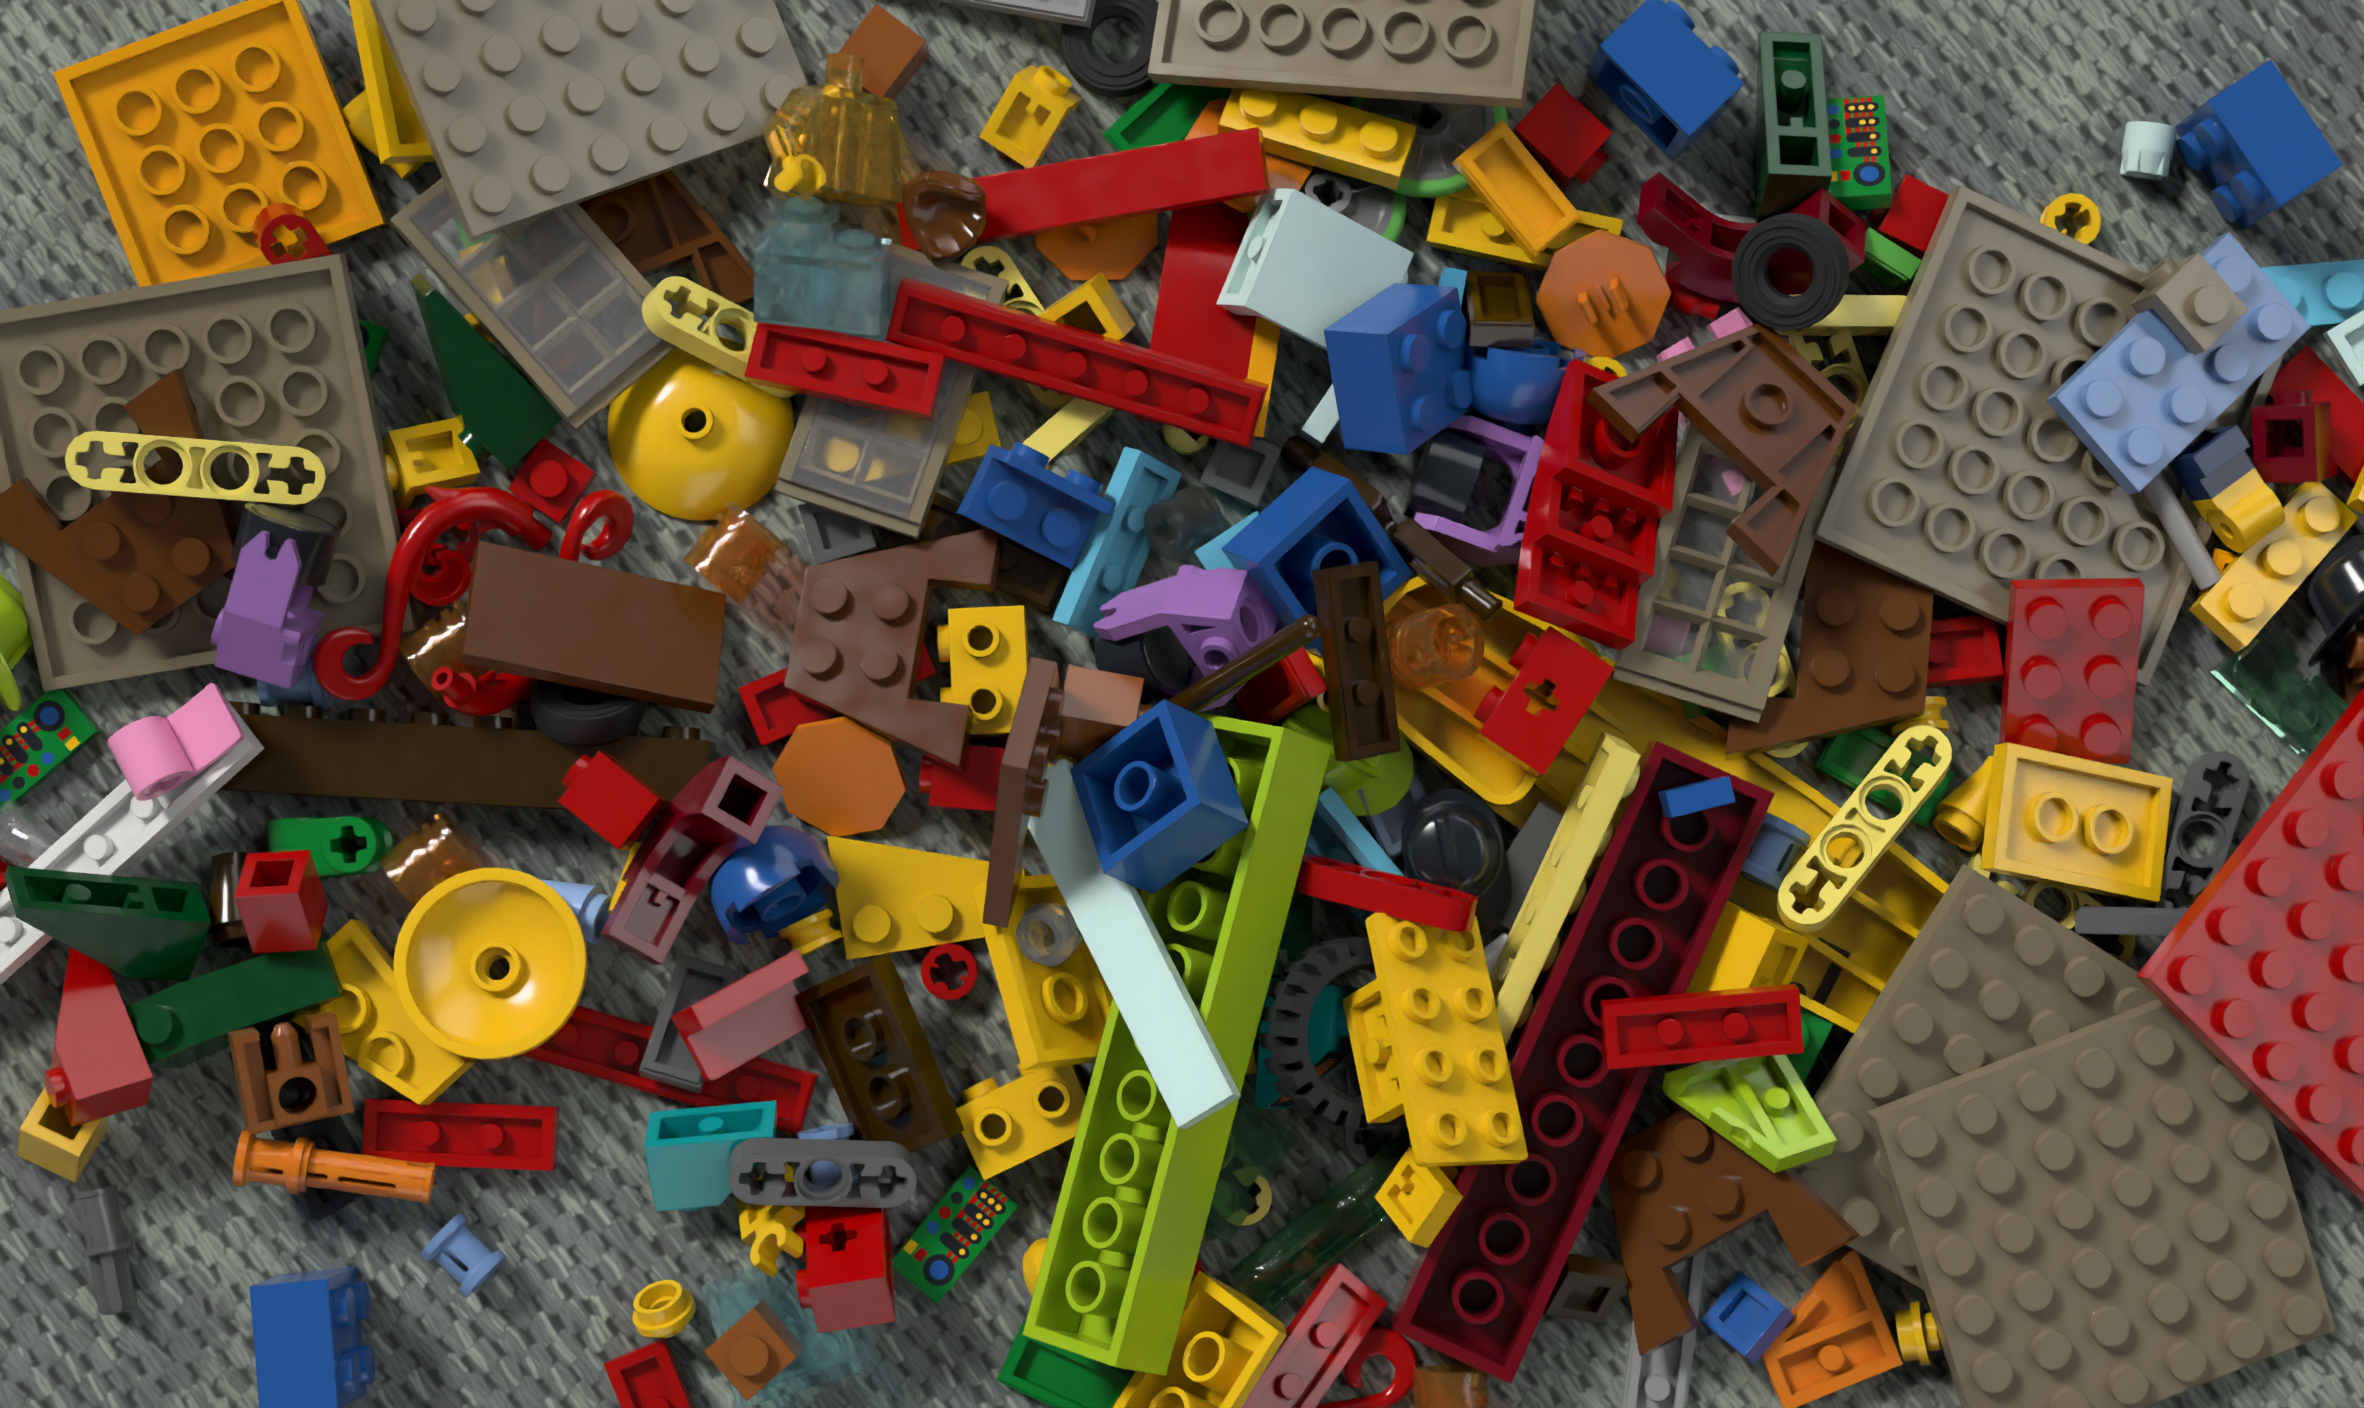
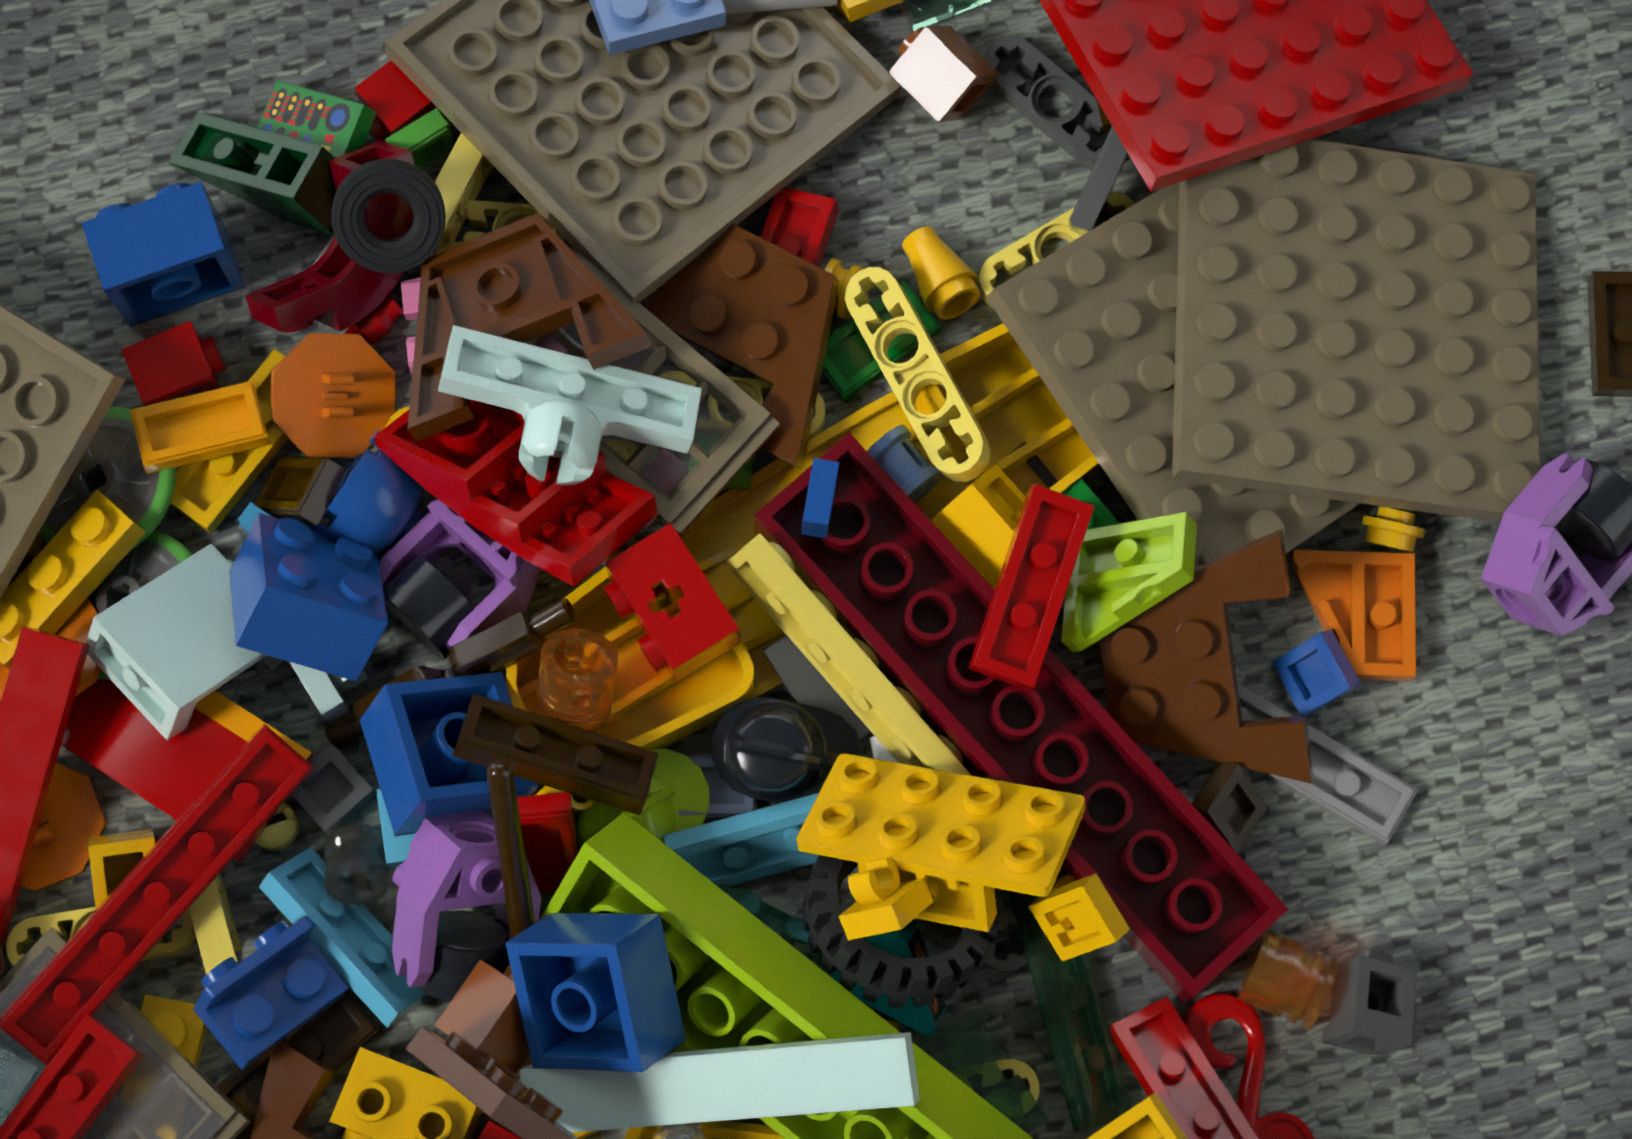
camera: 65 degrees left, 10 degrees down
(1350, 1018) = (882, 900): none -> yellow tile
(1386, 893) = (784, 822): red beam -> none
(1685, 523) = (567, 401): none -> light aqua plate
(2072, 666) = (857, 141): red plate -> none
(2076, 823) = (994, 194): yellow plate -> none
(2178, 720) = (942, 72): none -> brick

